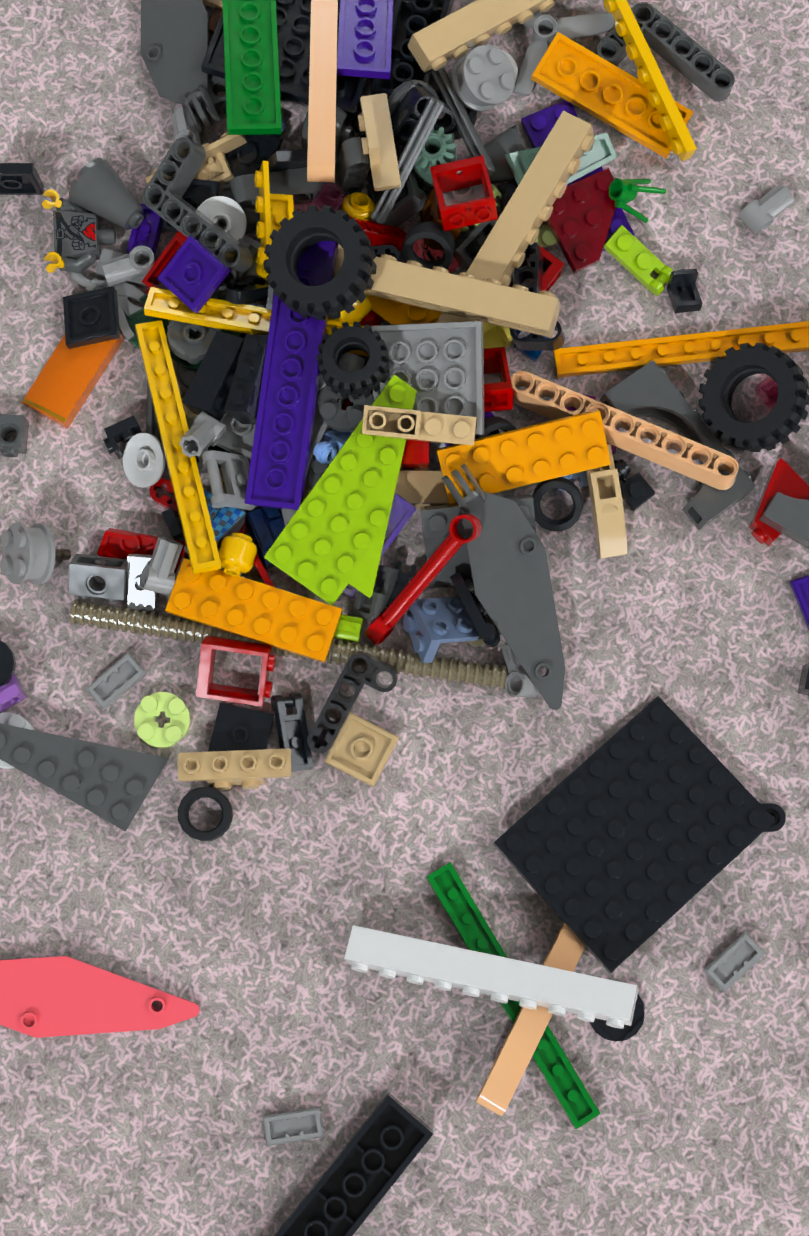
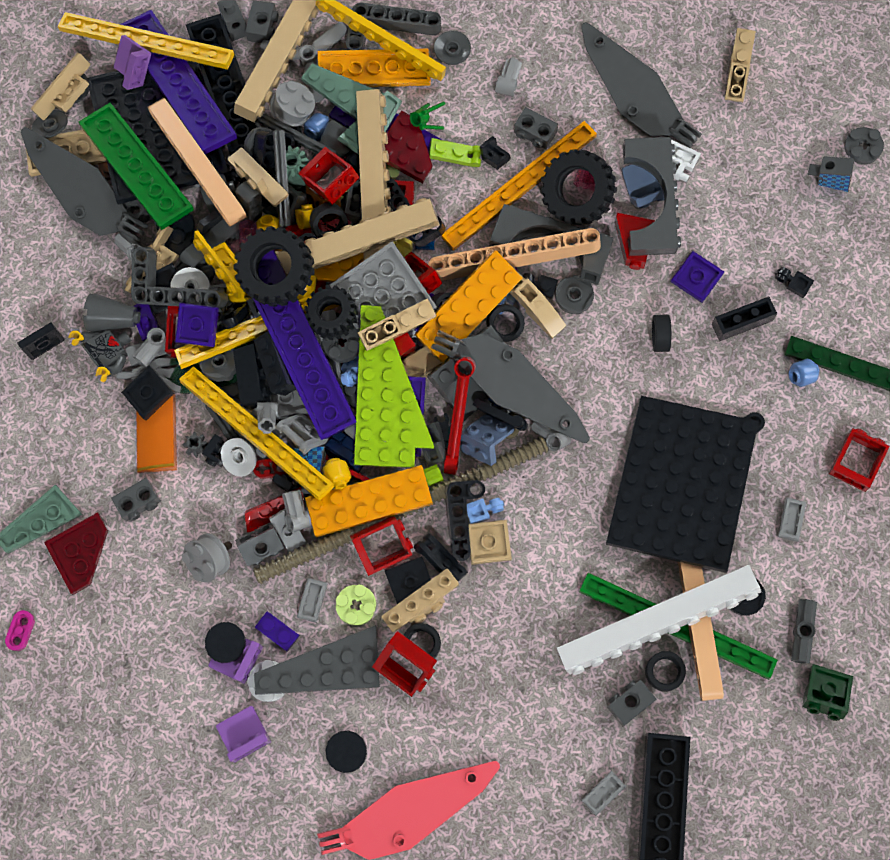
camera: 30 degrees left, 5 degrees down
(39, 879) = (346, 751): none -> black tile
(54, 690) = (277, 631): none -> dark purple plate
(98, 410) = (192, 449): none -> dark grey gear
(154, 830) = (398, 674): none -> red window
(374, 704) = (478, 511): none -> light blue plate
(381, 1056) = (642, 697): none -> dark grey brick
(405, 221) = (303, 216): none -> yellow plate
(473, 1055) = (676, 660): none -> black tyre
(495, 121) = (315, 126): none -> medium blue head
(548, 89) = (335, 88): none -> sand green wing
(632, 1192) = (828, 692): none -> dark green plate
(640, 1116) = (803, 644): none -> dark grey piece
(657, 538) = (576, 305): none -> dark grey plate
(724, 118) = (452, 40): none -> dark grey dish
(733, 638) = (661, 333): none -> black tyre
(761, 290) = (538, 125): none -> dark grey brick

